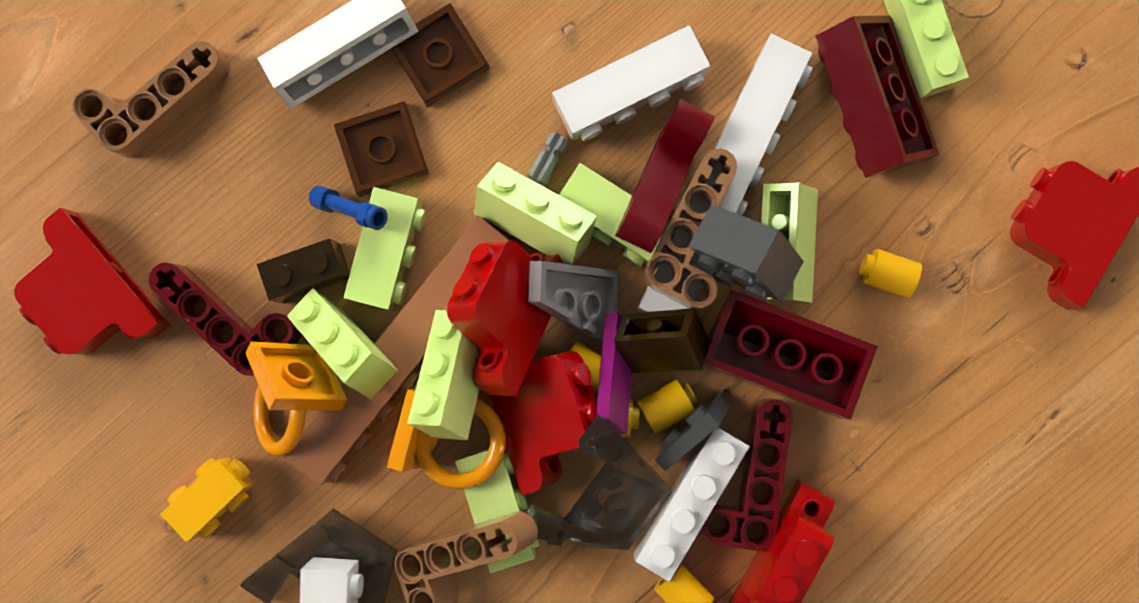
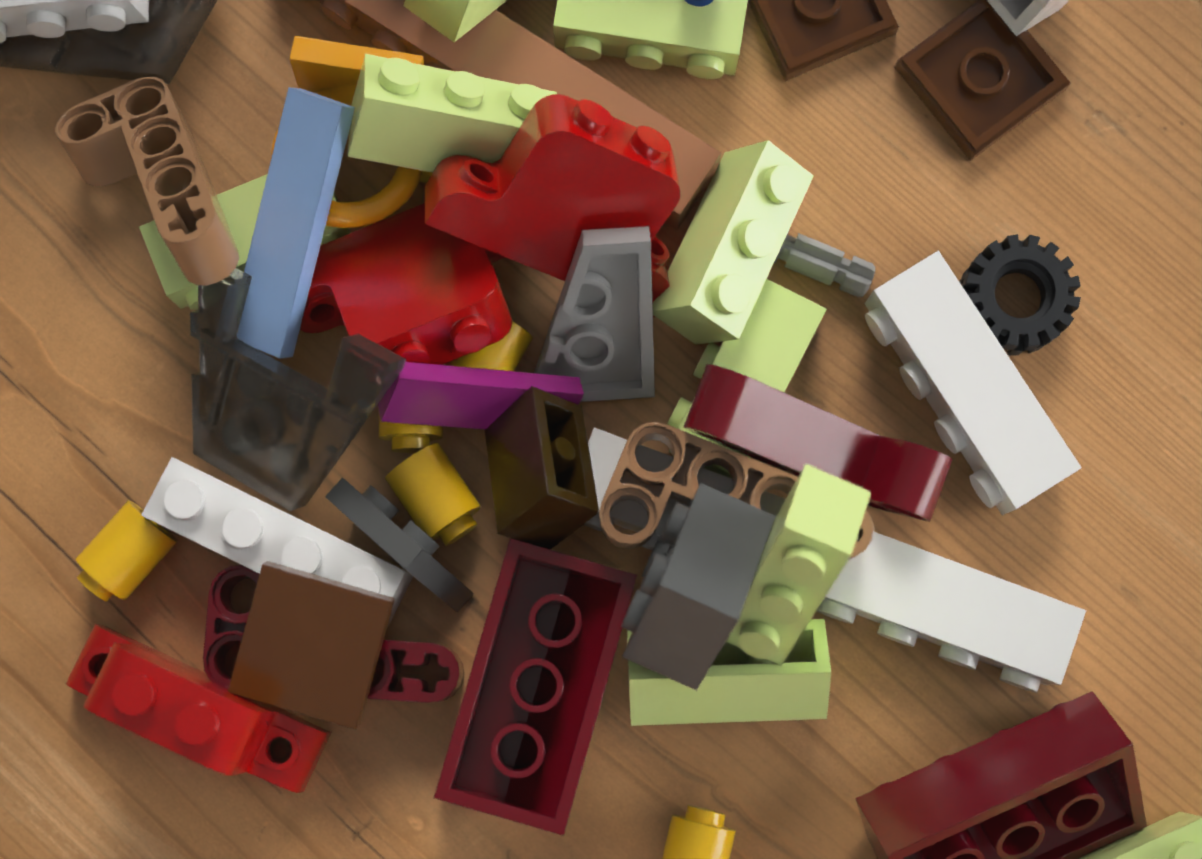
camera: 80 degrees right, 5 degrees down
(498, 477) = (292, 219): none -> light blue tile
(570, 28) = (1045, 270): none -> black tyre
(741, 188) = (799, 562): none -> yellowish green brick
(756, 484) = (311, 645): none -> reddish brown tile

